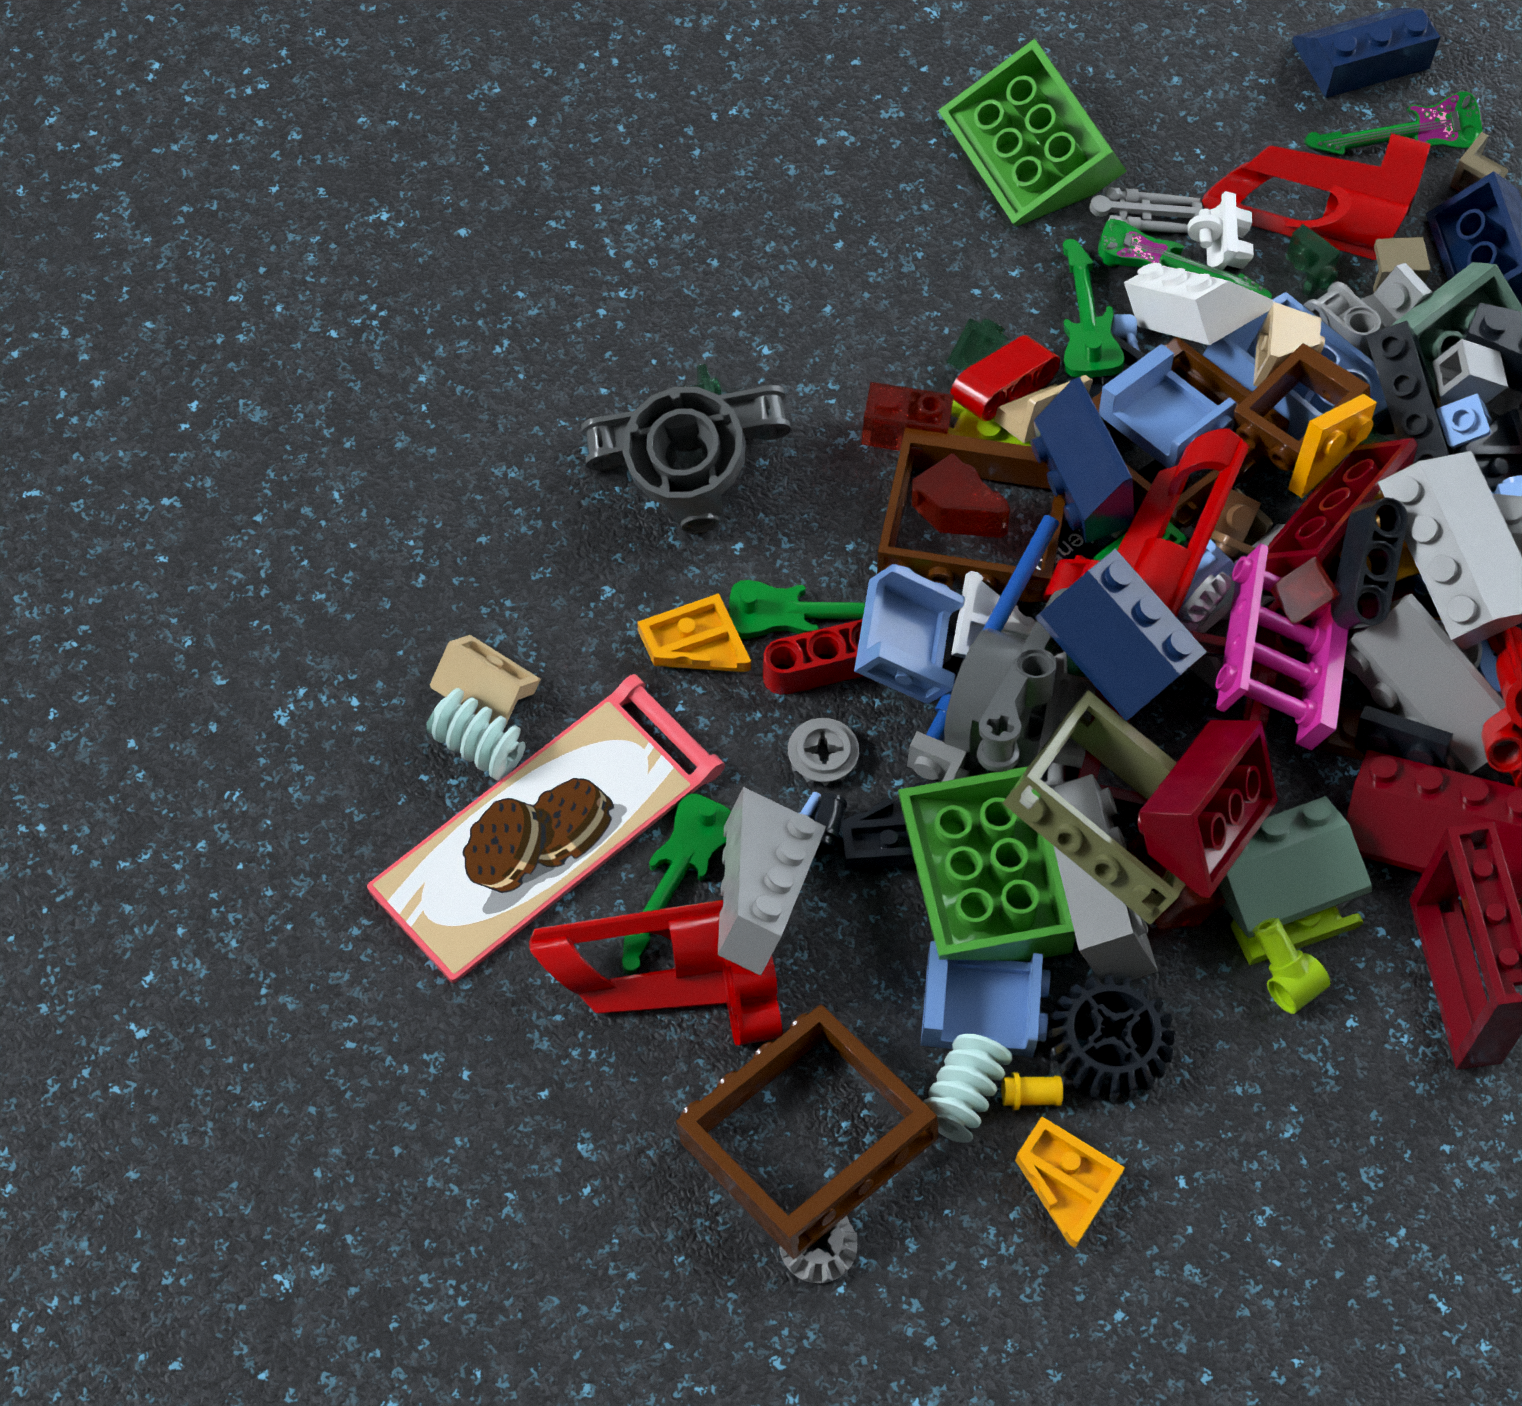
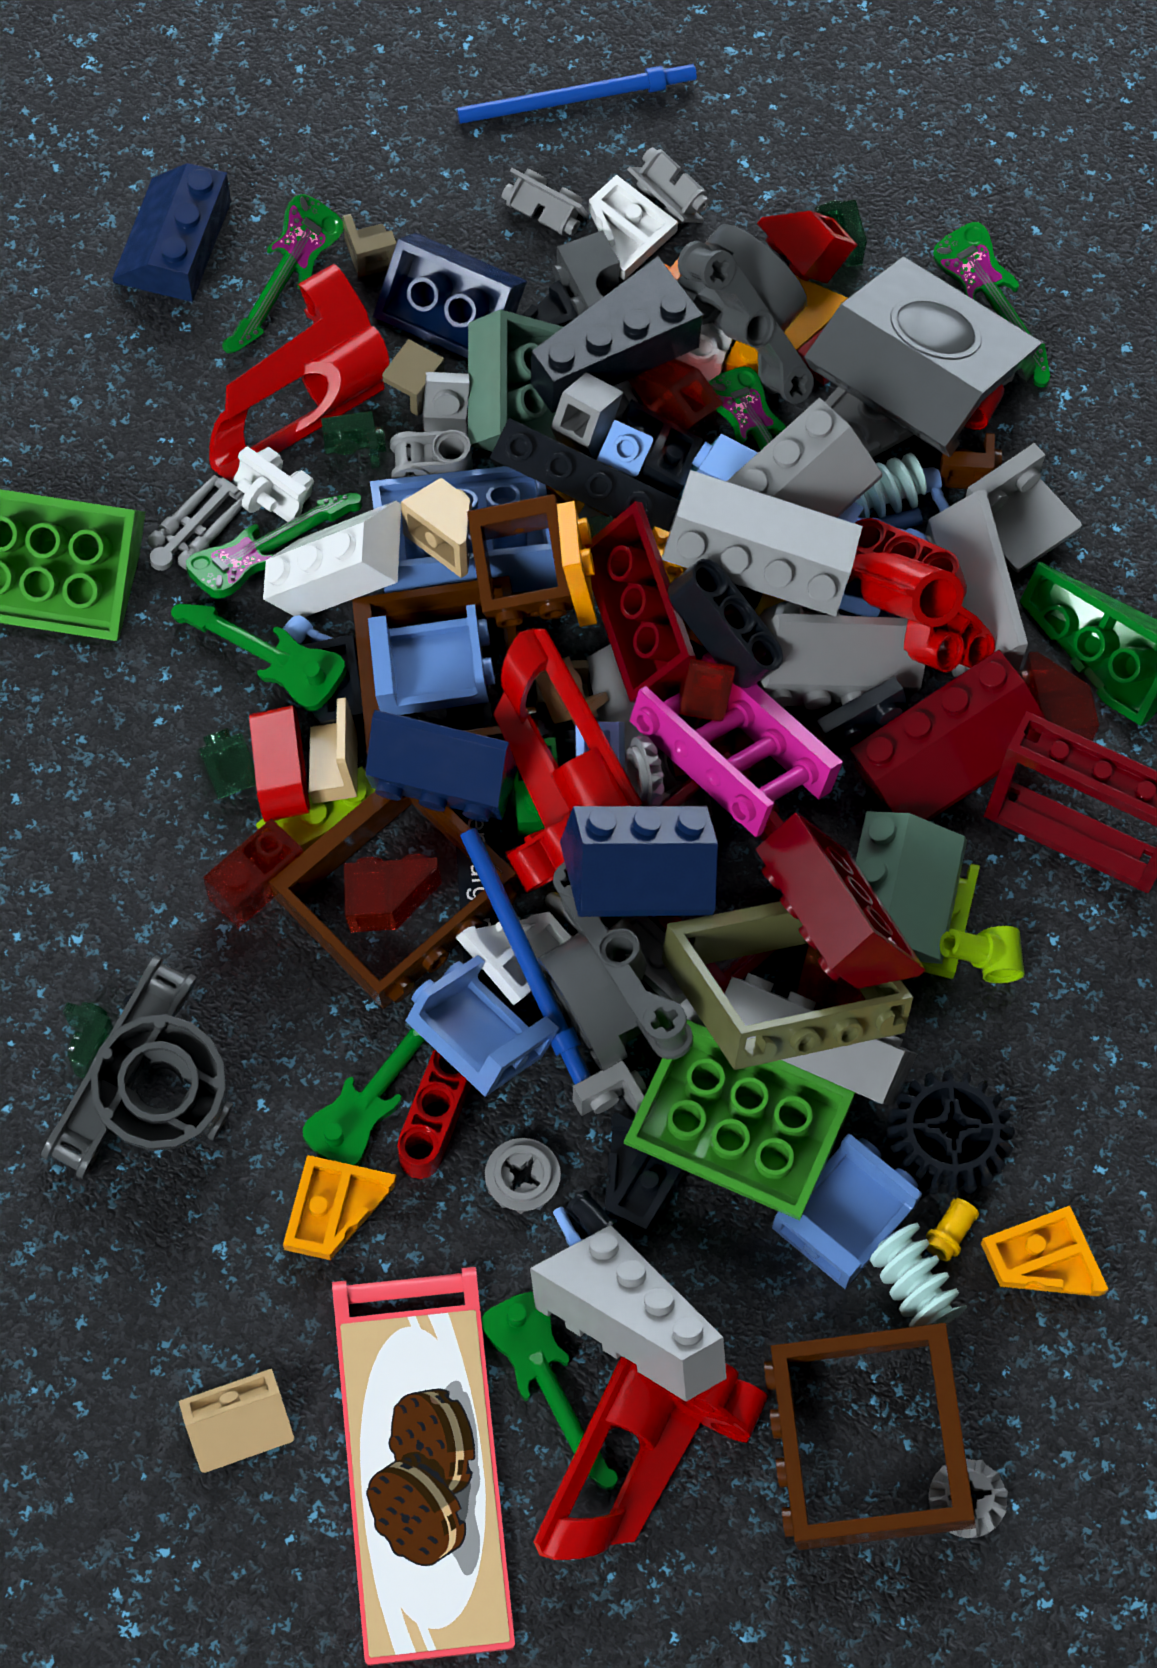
camera: 55 degrees left, 5 degrees up
(475, 736) = (290, 1463): light aqua piece -> none

